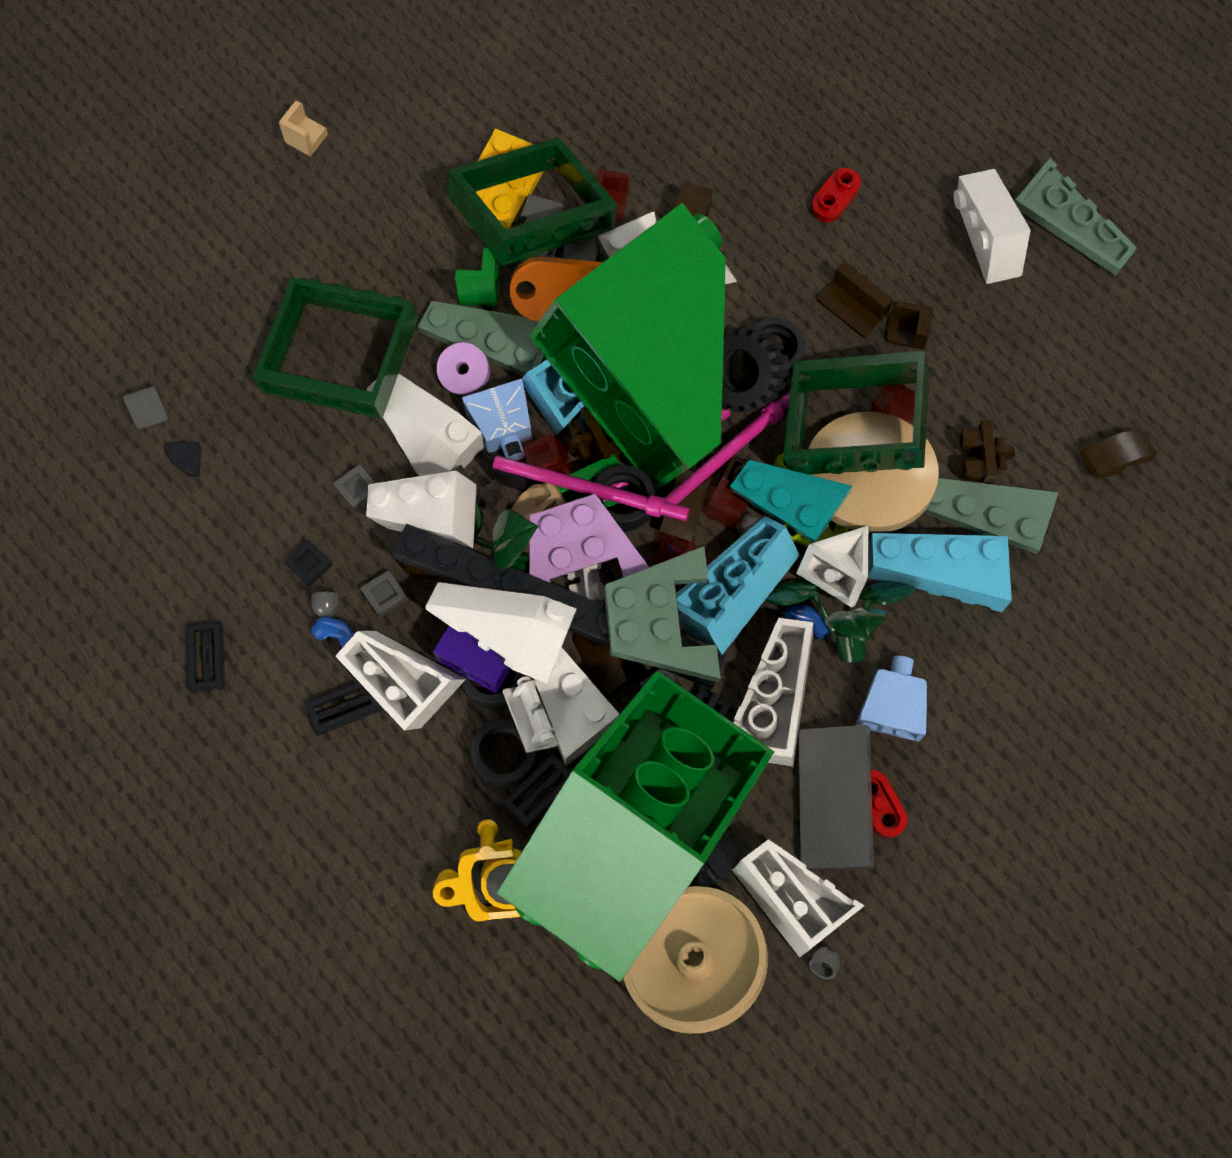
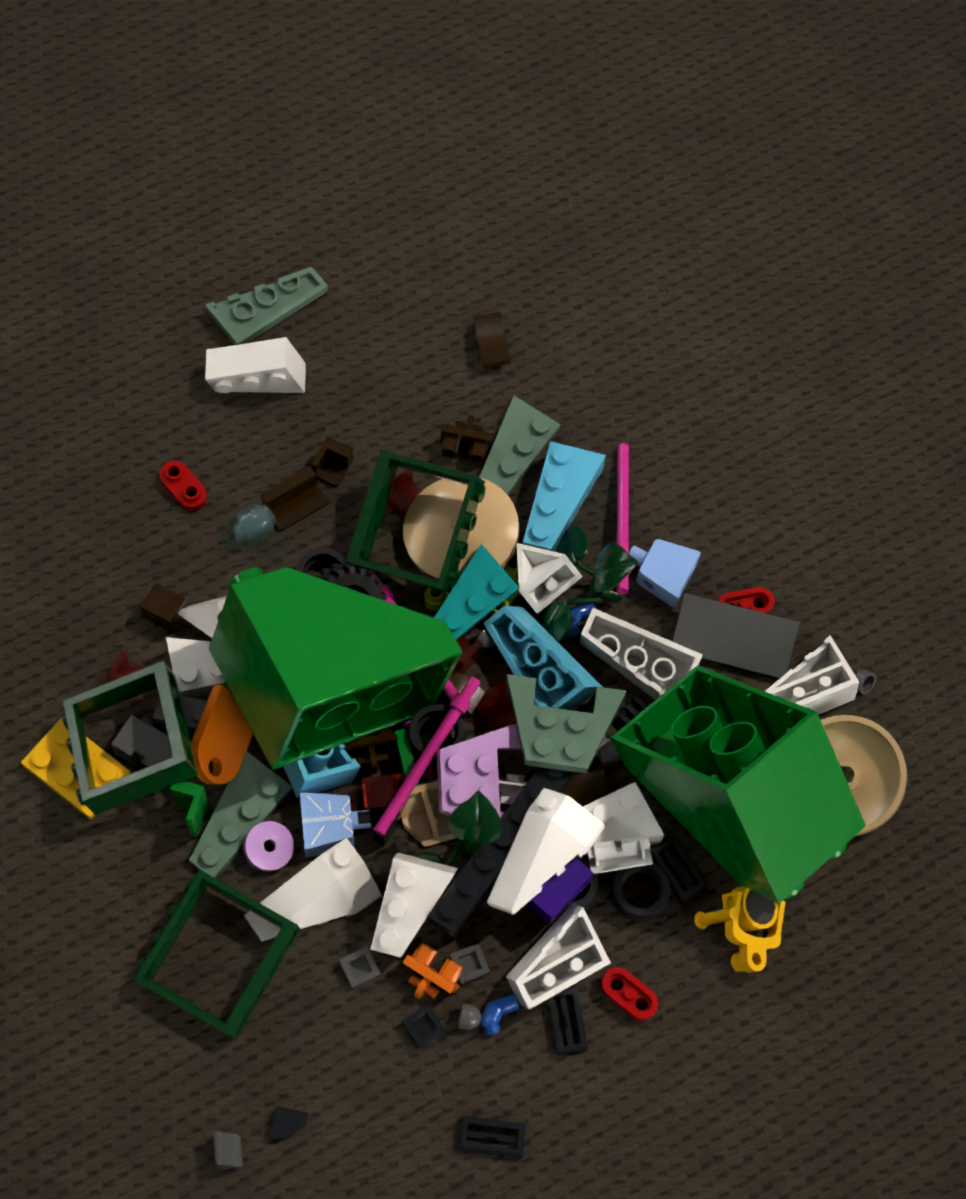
camera: 80 degrees left, 5 degrees down
(359, 554) = (445, 978): none -> orange hips
(383, 765) = (631, 992): none -> red plate
(811, 266) = (253, 524): none -> clear light blue head
(882, 650) = (623, 507): none -> dark pink bar

